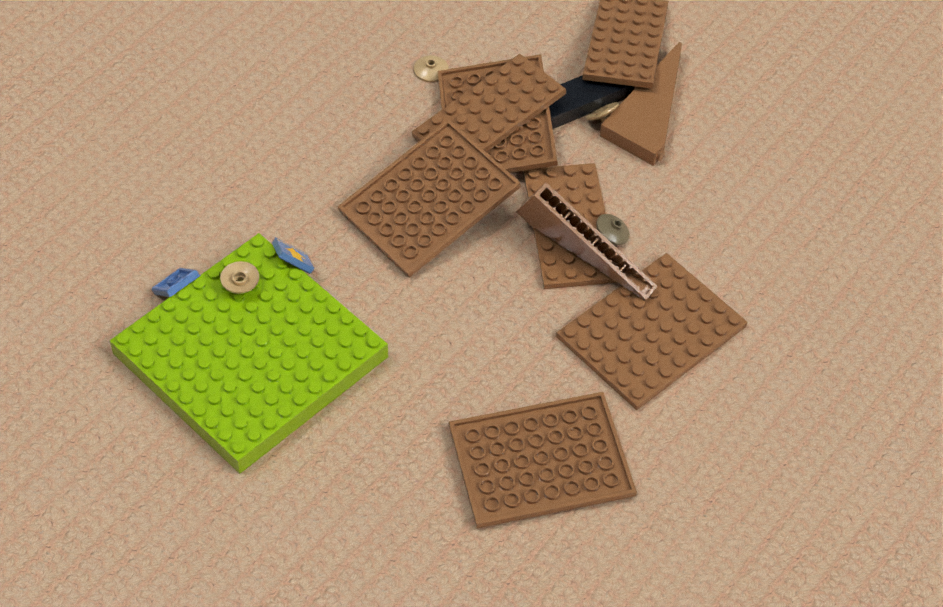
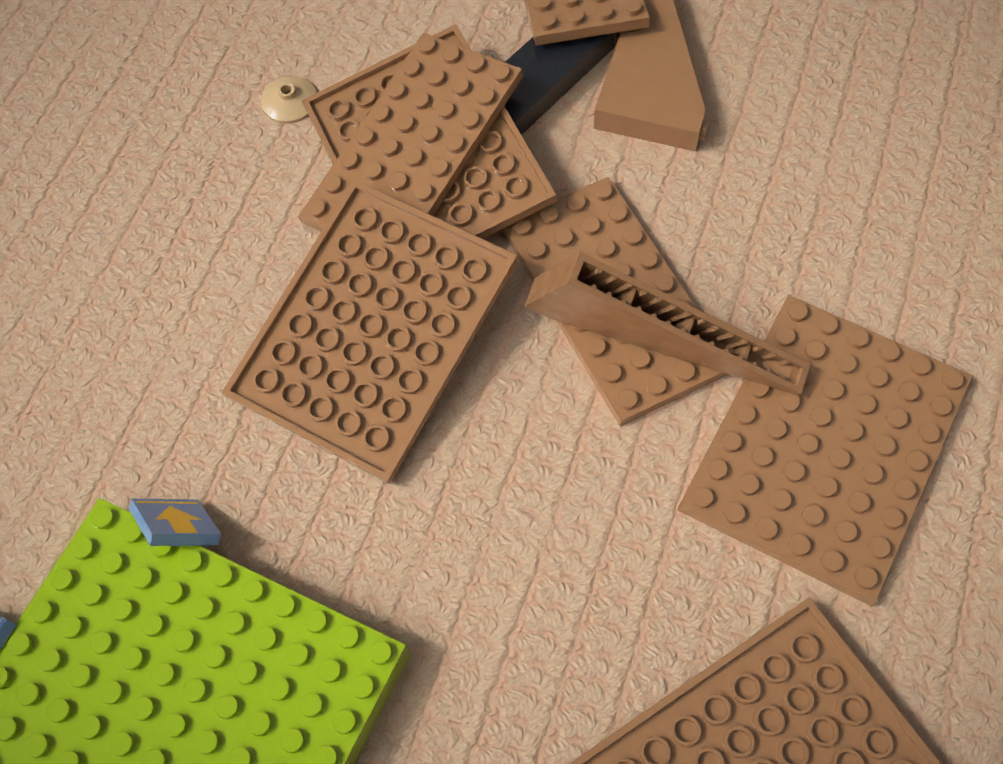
camera: 15 degrees left, 10 degrees up
(239, 277) = (76, 604): tan dish -> none
(603, 112) = (586, 88): tan dish -> none
(613, 229) = (687, 282): dark tan dish -> none

